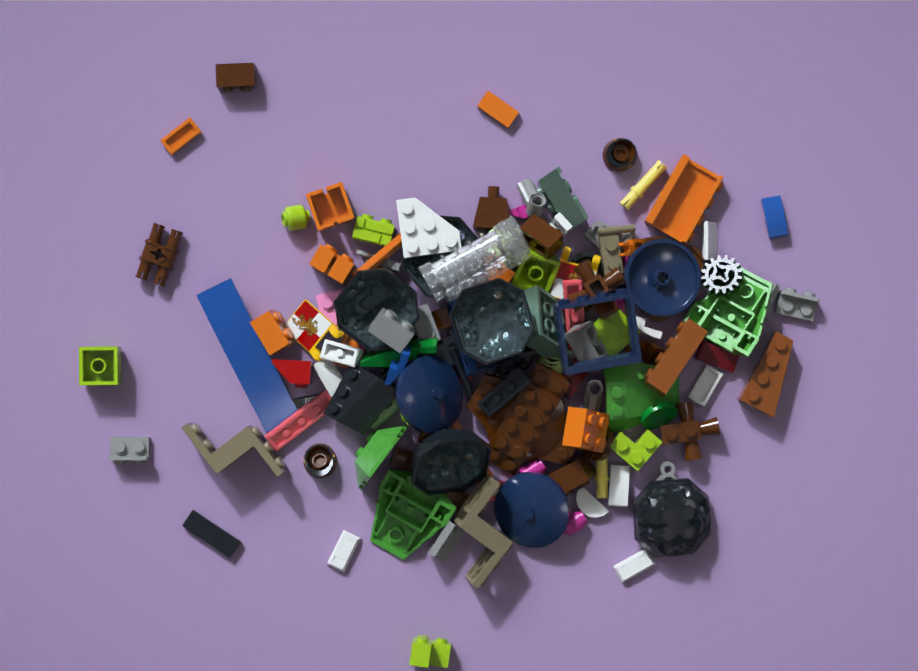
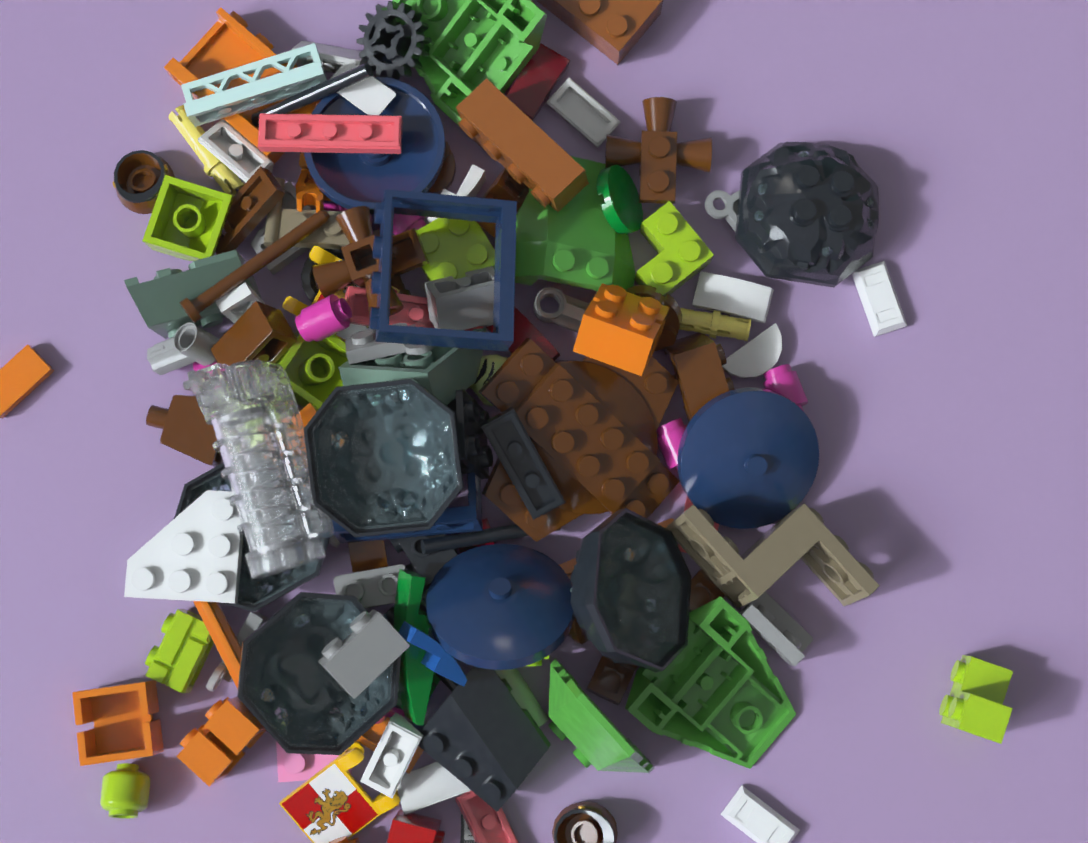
camera: 80 degrees left, 5 degrees down
(552, 295) = (363, 347): none -> light grey hinge
(560, 272) = (323, 318): none -> dark pink brick
(582, 228) = (254, 265): none -> reddish brown bar
(601, 186) = (187, 220): none -> lime slope
(611, 214) = (249, 208): none -> reddish brown plate
(644, 202) = (234, 150): none -> white slope
(662, 253) = (330, 133): none -> coral tile
(678, 211) = (257, 91): none -> light aqua fence
(682, 237) = (317, 92): none -> black bar
(691, 264) = (367, 95): none -> white sticker

